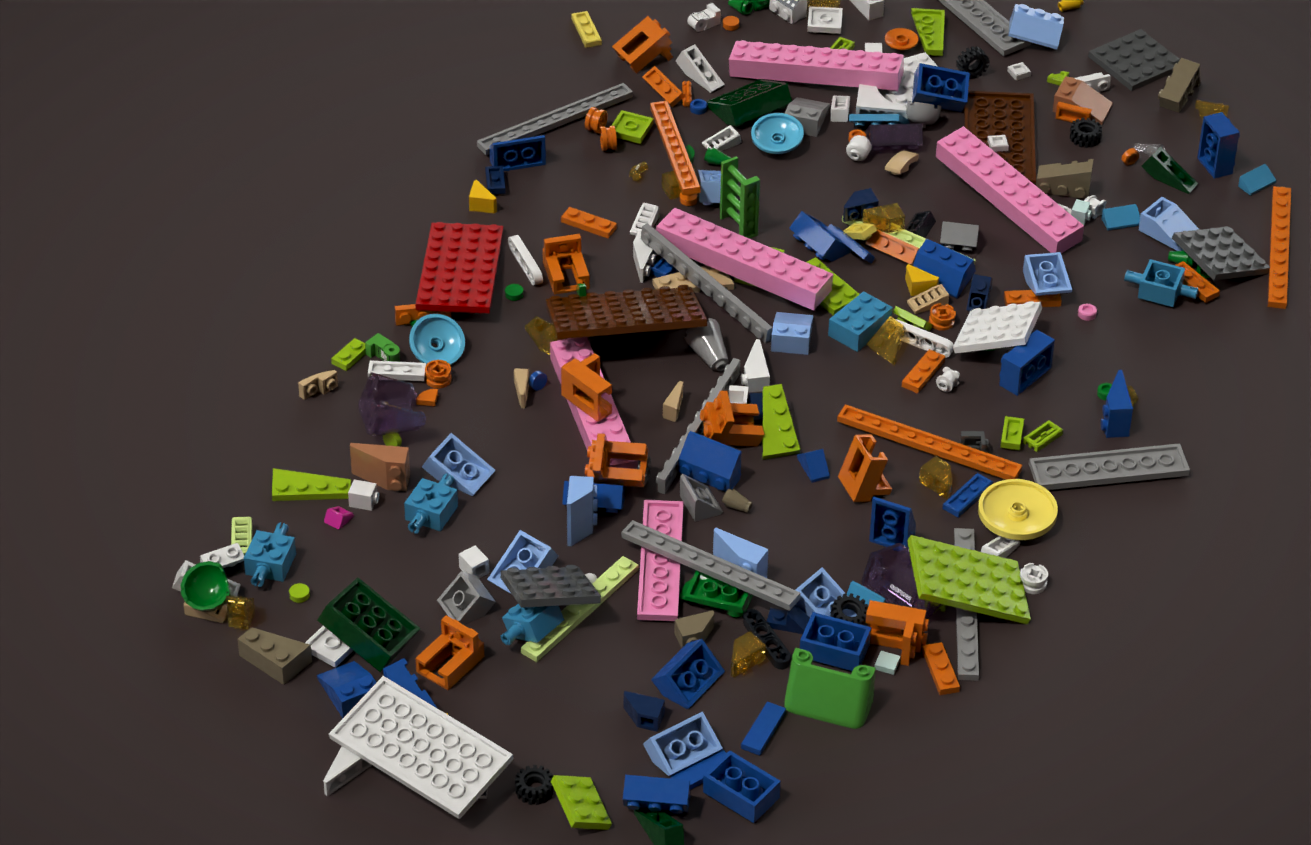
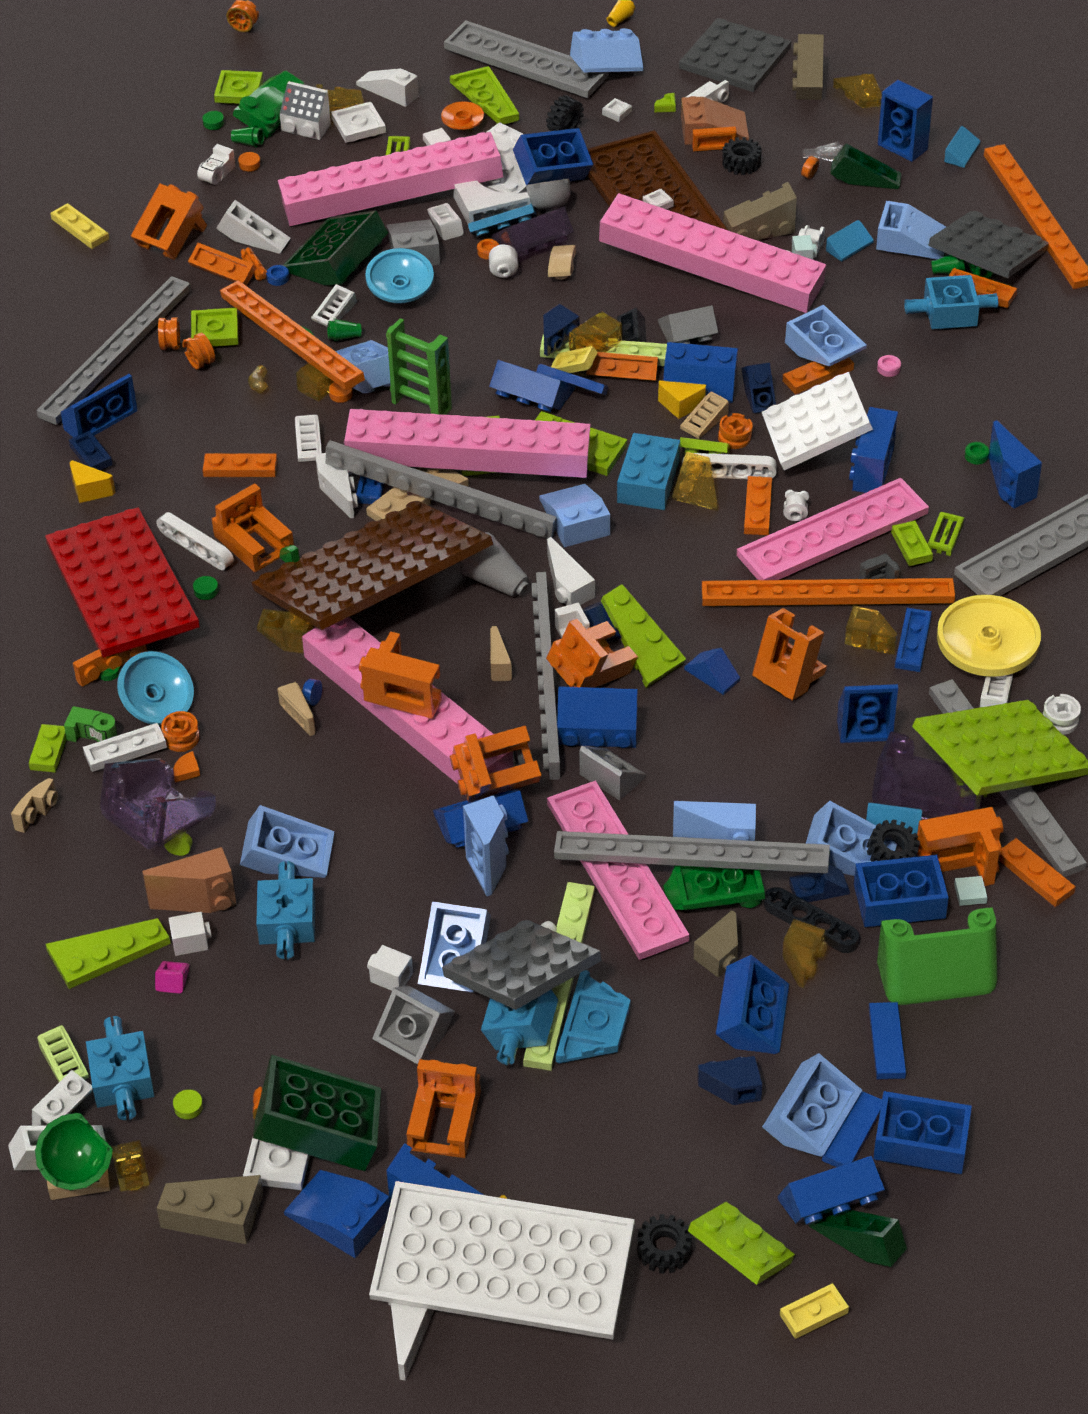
camera: 25 degrees left, 5 degrees up
(580, 643) = (593, 1021): none -> dark azure wing
(735, 500) = (656, 754): dark tan cone -> none
(962, 405) = (832, 531): none -> bright pink plate

